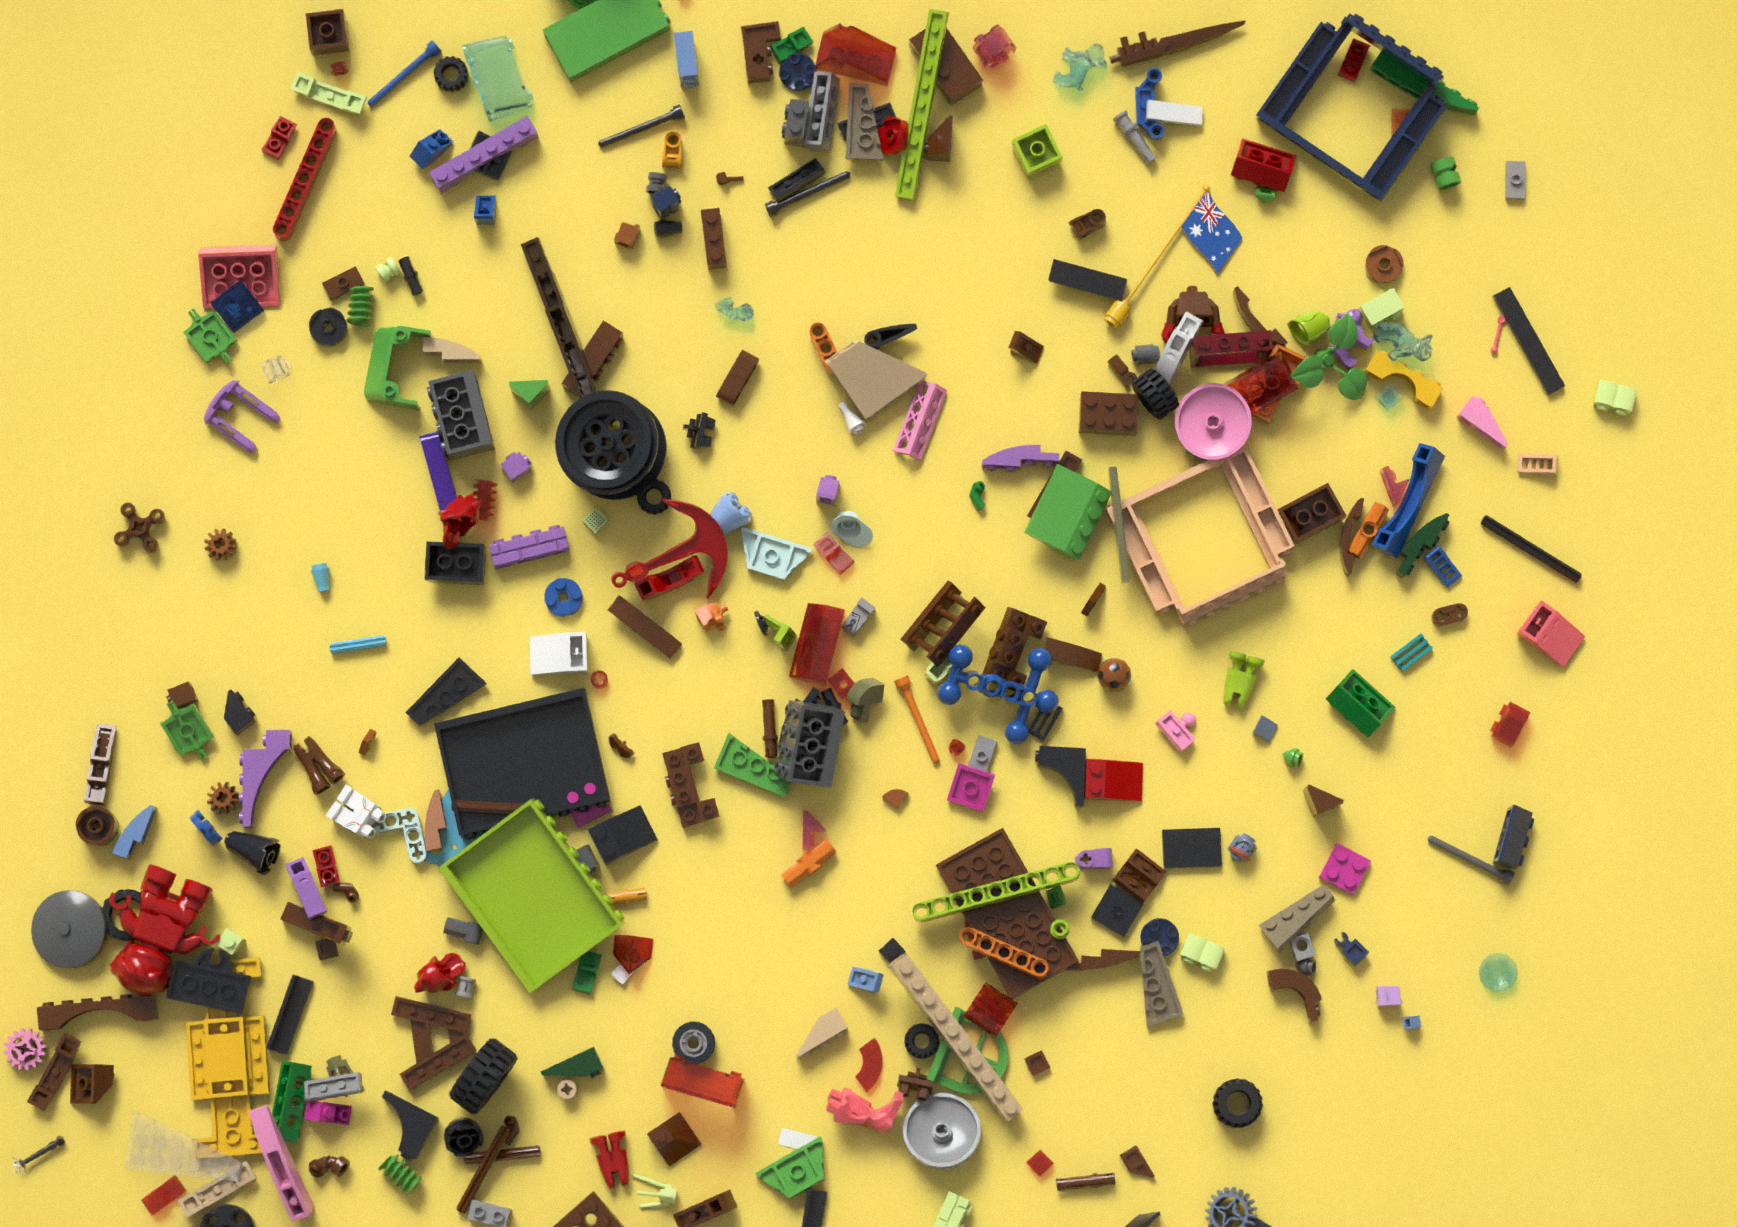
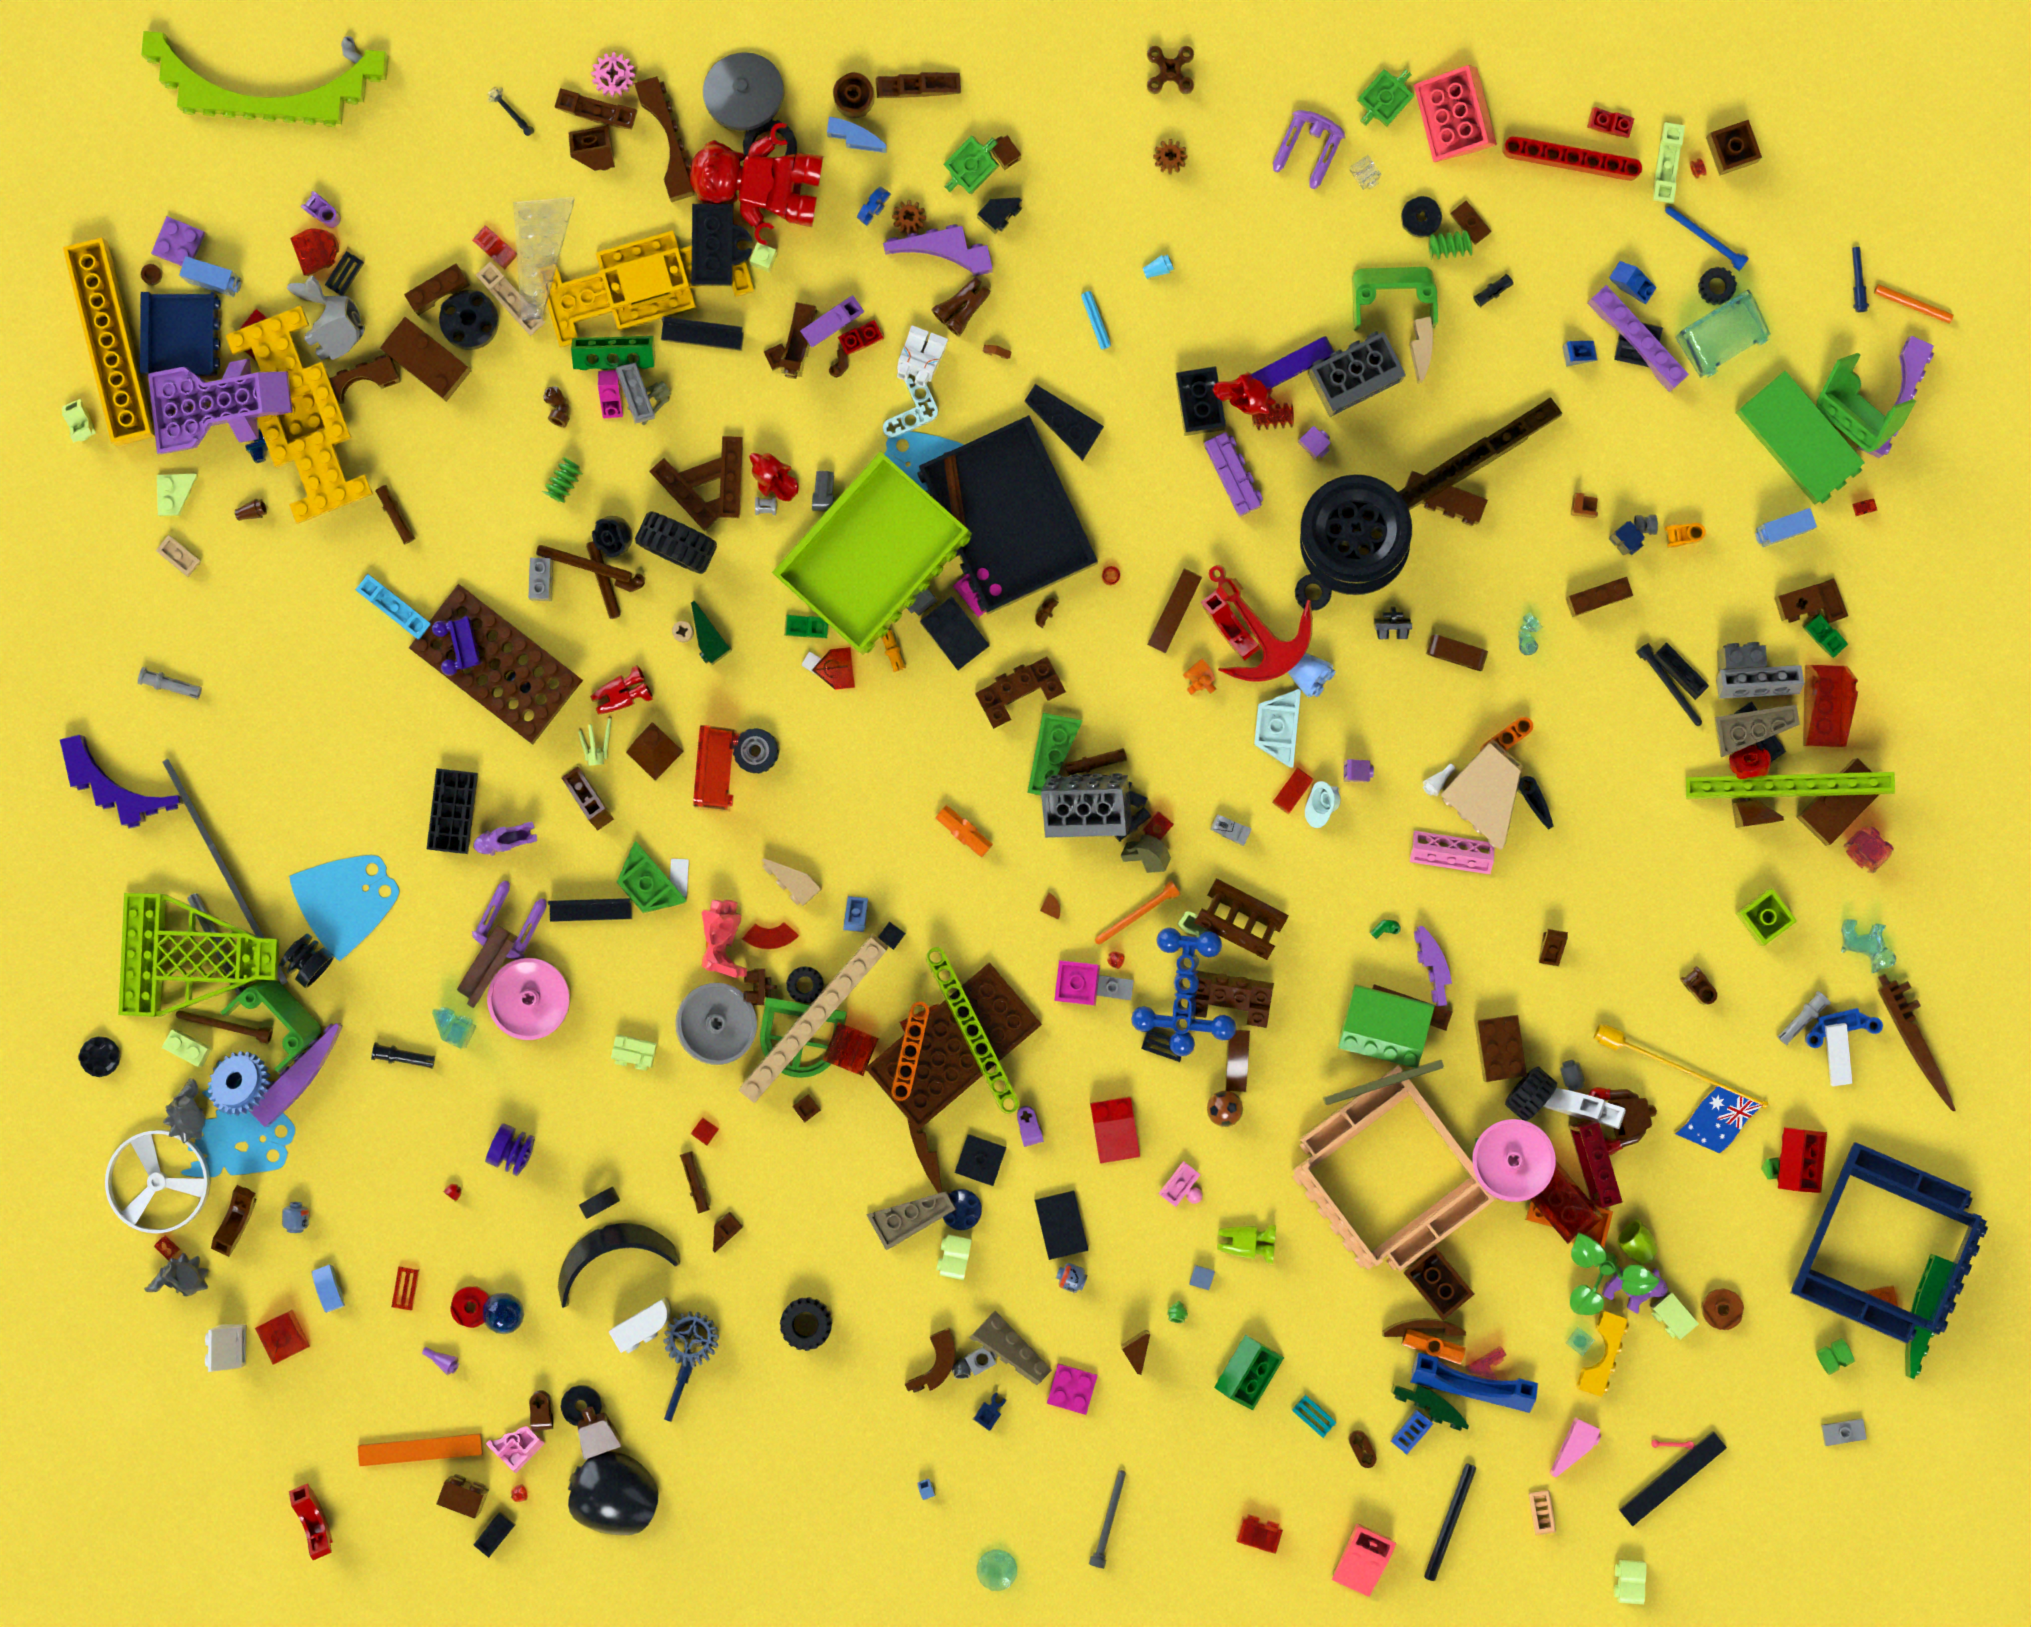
camera: 80 degrees right, 5 degrees up
(237, 306) = (1422, 118): clear blue tile -> none
(254, 850) = (861, 260): black cone -> none
(281, 1164) = (545, 357): bright pink slope -> none
(388, 269) = (1494, 265): yellowish green wheel -> none
(415, 1125) = (615, 485): black arch -> none
(434, 823) = (927, 438): nougat slope -> none
(530, 391) = (1396, 440): bright green slope -> none
(559, 653) = (1128, 528): white slope -> none
(566, 607) = (1199, 515): blue plate -> none
(595, 521) = (1275, 537): yellowish green slope -> none
(666, 228) = (1600, 545): black cone -> none
(675, 113) = (1724, 528): black piece -> none
(722, 179) = (1665, 593): reddish brown hand -> none
(784, 636) = (1195, 757): lime piece -> none
(797, 72) = (1797, 647): dark blue dish -> none
(810, 824) = (1005, 824): clear pink slope -> none
(817, 643) = (1194, 793): clear red slope -> none
(1056, 897) = (981, 1094): bright green slope -> none
(1062, 923) = (946, 1097): lime plate -> none
(1069, 764) = (1122, 1080): black arch -> none
(1087, 279) = (1638, 998): black panel -> none
(1093, 599) = (1300, 1071): reddish brown tile -> none
(1121, 369) = (1551, 1052): reddish brown bar -> none
(1139, 876) = (1021, 1176): reddish brown slope -> none
(1241, 301) = (1651, 1166): reddish brown slope -> none
(1353, 60) = (1937, 1235): red slope -> none
(1388, 995) = (948, 1459): lavender panel -> none
(1403, 341) = (1643, 1346): clear light blue animal -> none
(1513, 837) = (1140, 1560): slope -> none

